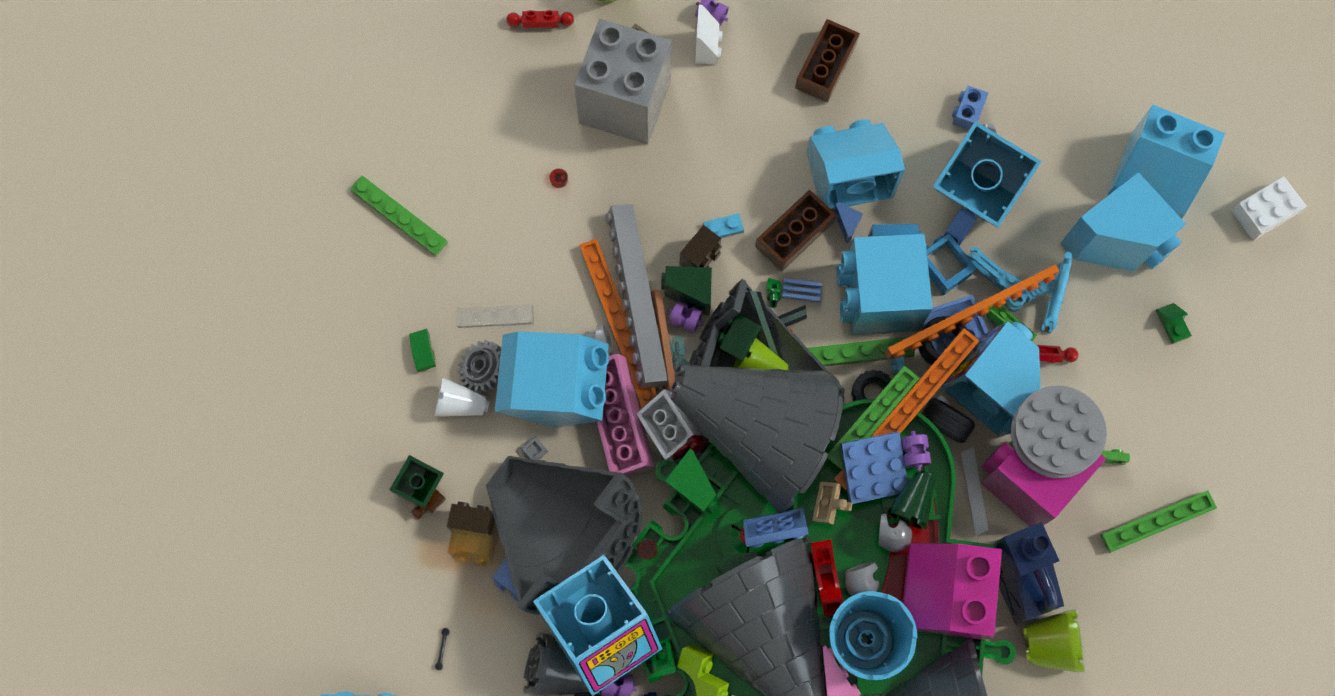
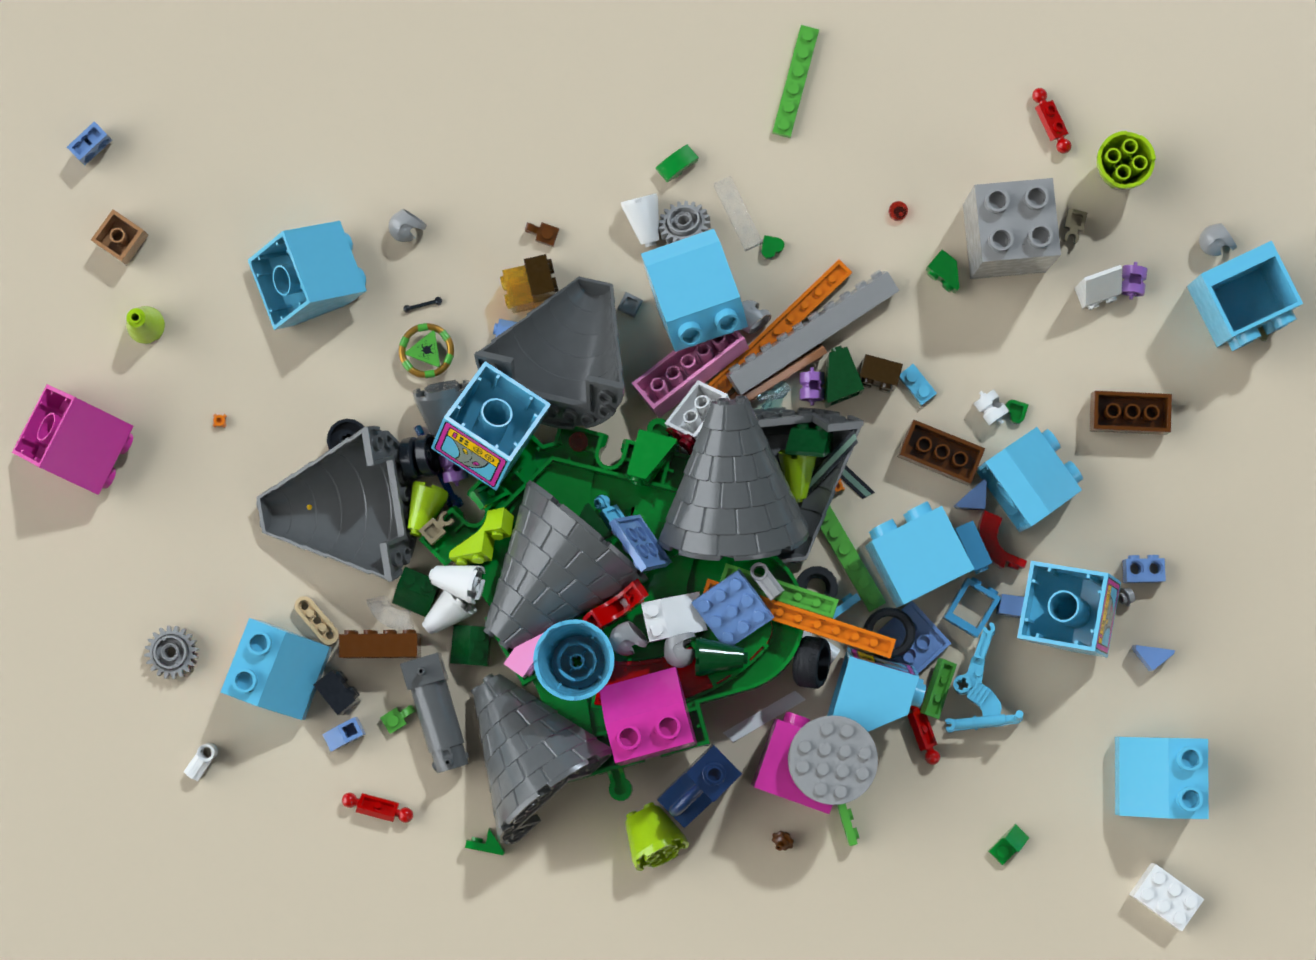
camera: 70 degrees right, 10 degrees up
(355, 634) = (402, 223): none -> light grey helmet
(416, 482) = (554, 214): dark green slope -> none
(489, 664) = (426, 350): none -> piece
(539, 299) = (771, 246): none -> green tile
(632, 159) = (945, 270): none -> green slope
(732, 546) = (607, 512): none -> medium azure plate
(773, 171) = (991, 407): none -> white wheel
(773, 295) = (870, 458): green piece -> none
(783, 154) = (1017, 411): none -> green tile
(802, 290) = (894, 481): light blue tile -> none
(828, 503) = (684, 582): tan plate -> none
(858, 530) = (672, 617): none -> white slope
(862, 422) = (767, 582): none -> light grey piece
(879, 215) = (988, 529): none -> red arch
(915, 449) = (763, 640): medium lavender wheel -> none
(965, 316) = (931, 652): orange plate -> none
(1050, 133) = (1152, 656): none -> medium blue slope
(1100, 522) = (782, 840): none -> reddish brown plant
(1126, 229) = (1074, 760): medium azure slope -> none
(1158, 521) = (807, 894): bright green plate -> none

